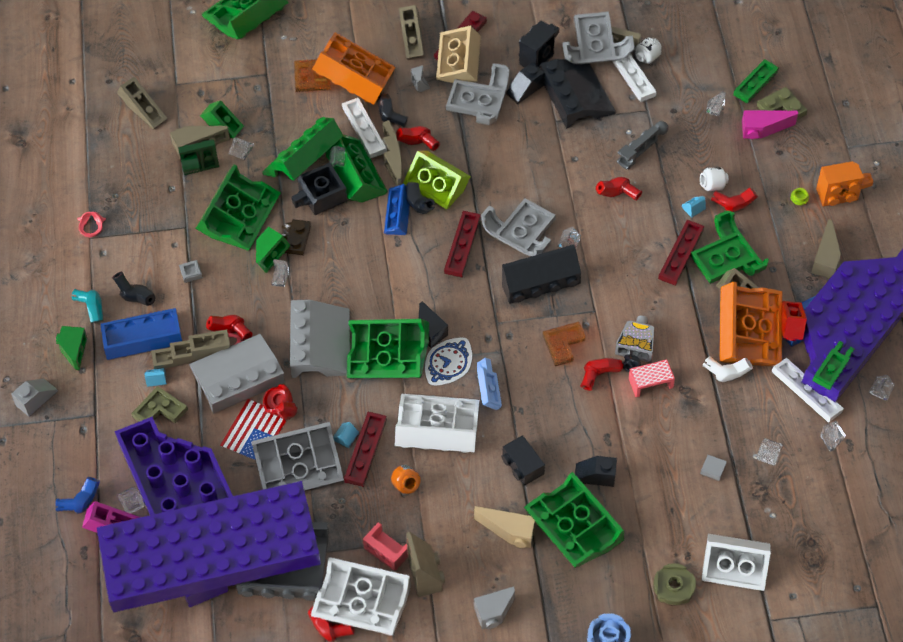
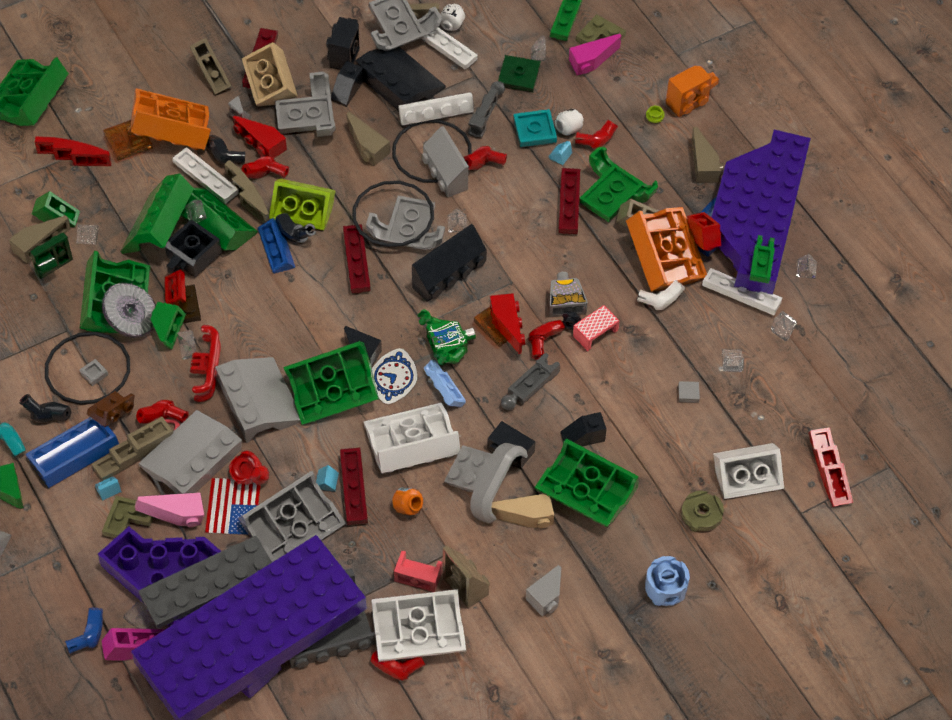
camera: 25 degrees left, 0 degrees up
(187, 296) = (71, 338): none -> black piece
(187, 488) = (203, 581): none -> dark grey plate
(188, 307) = (111, 408): none -> reddish brown bracket
(201, 415) = (174, 508): none -> bright pink slope
(231, 219) = (116, 310): none -> piece
(257, 69) = (79, 152): none -> red slope
(285, 294) = (205, 364): none -> red piece
(291, 219) = (178, 288): none -> red tile
(430, 109) = (262, 137): none -> red slope
(481, 477) = (482, 475): none -> light grey piece
(508, 342) = (446, 338): none -> green torso
(512, 183) = (393, 244): none -> black piece
(522, 143) = (370, 143): none -> dark tan slope
(568, 408) = (530, 382): none -> dark grey plate
(569, 340) = (505, 319): none -> red slope
(573, 138) = (415, 124): none -> black piece
(580, 182) = (446, 163): none -> light grey slope
(596, 129) = (436, 108): none -> white plate
(679, 175) = (535, 128): none -> teal plate
(689, 120) = (519, 73): none -> dark green plate
(817, 586) = (830, 467): none -> slope

